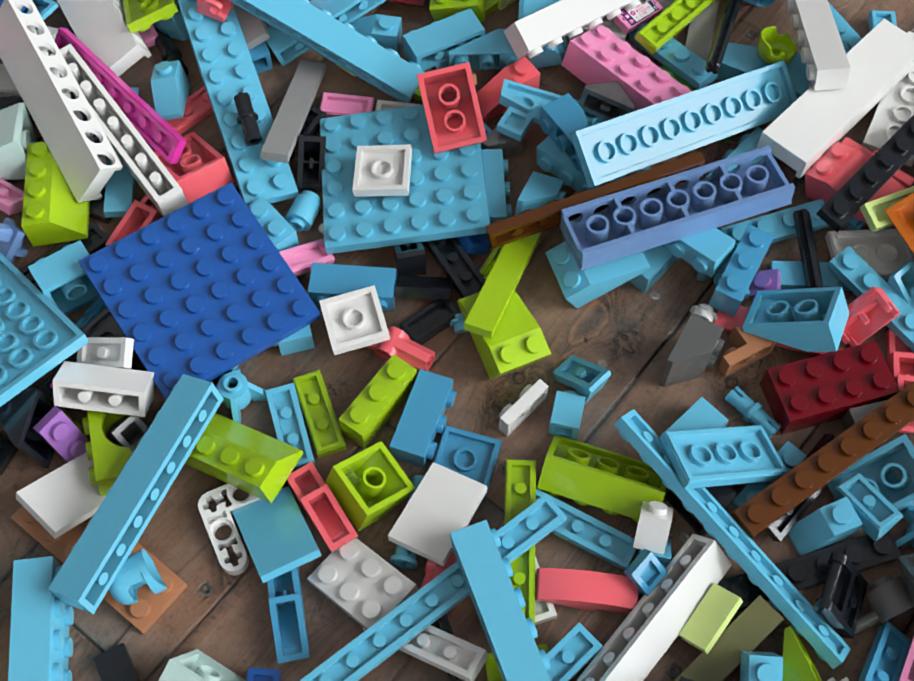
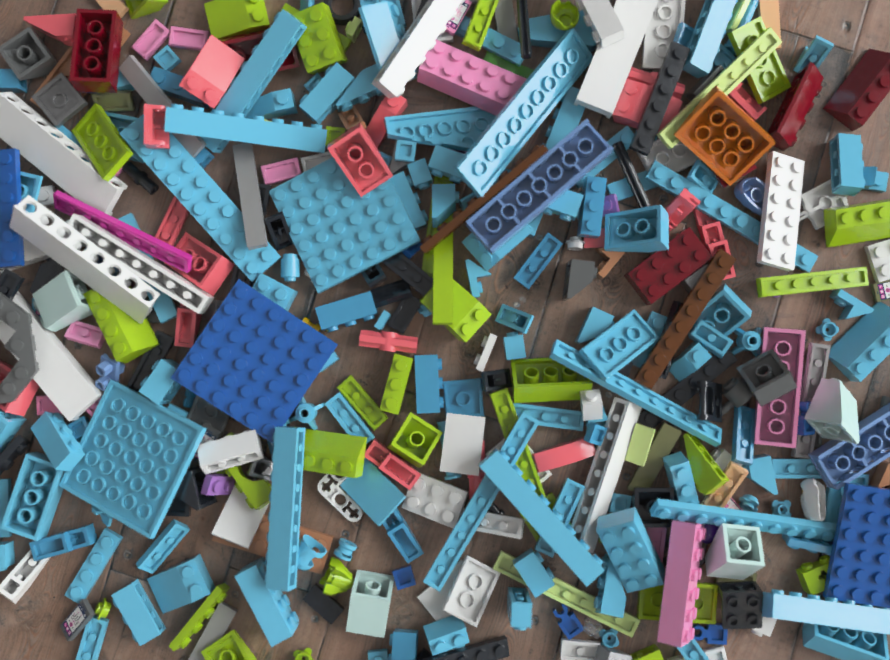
camera: 20 degrees left, 25 degrees up
(107, 352) = (219, 426): white plate -> none
(159, 642) = (337, 578): none -> lime brick
(170, 89) = (155, 210): medium azure slope -> none
(197, 603) = (345, 549): none -> medium azure wheel
(247, 119) = (224, 221): black axle -> none
(302, 256) = (306, 302): bright pink tile -> none
(354, 320) = (360, 340): white plate -> none
(382, 170) = (332, 225): white plate -> none
(397, 313) = (383, 319): none -> medium azure tile
(521, 162) = (420, 174): none -> medium azure brick
(521, 445) = (495, 379): none -> black slope
(549, 304) = (474, 272): none -> medium azure slope
(560, 120) = (443, 145): dark azure slope -> none
(606, 100) = (462, 108): flat silver slope -> none
(642, 319) = (538, 261): none -> dark azure plate
(752, 411) = (625, 299): medium azure pin -> none

